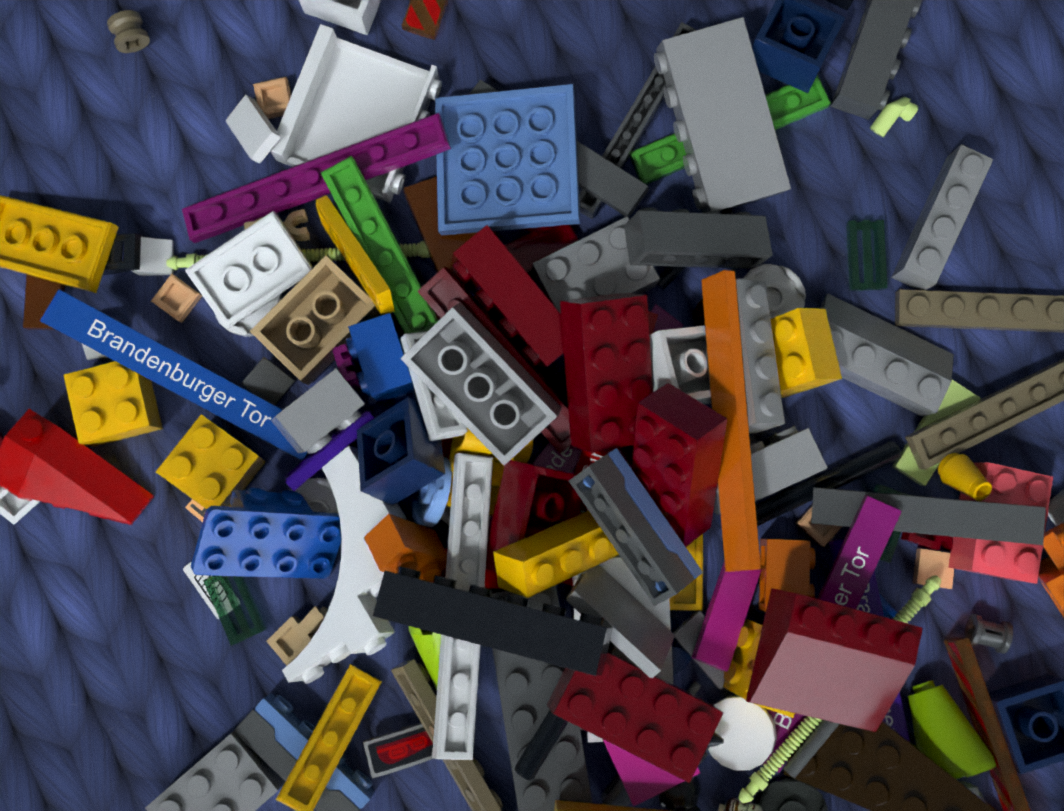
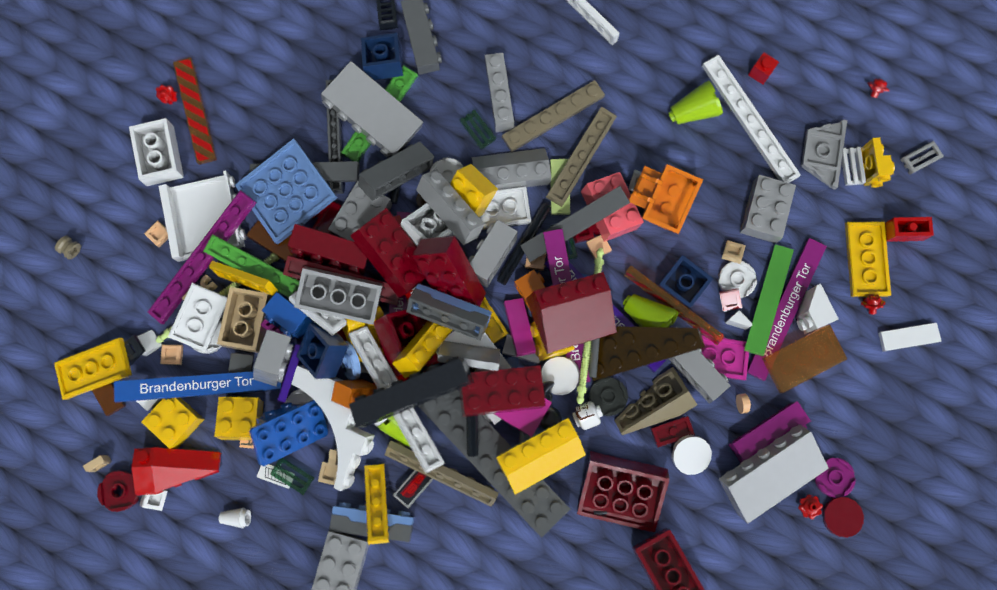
camera: 35 degrees left, 5 degrees down
(112, 612) = (236, 517): none -> white cone
(252, 129) = (157, 253): white tile -> none
(729, 400) = (452, 227): orange tile -> none
(834, 413) = (509, 207): none -> white tile
(890, 113) = (446, 61): yellowish green arm -> none
(962, 475) = (580, 196): yellow cone -> none
(989, 633) = (640, 258): dark grey bush -> none

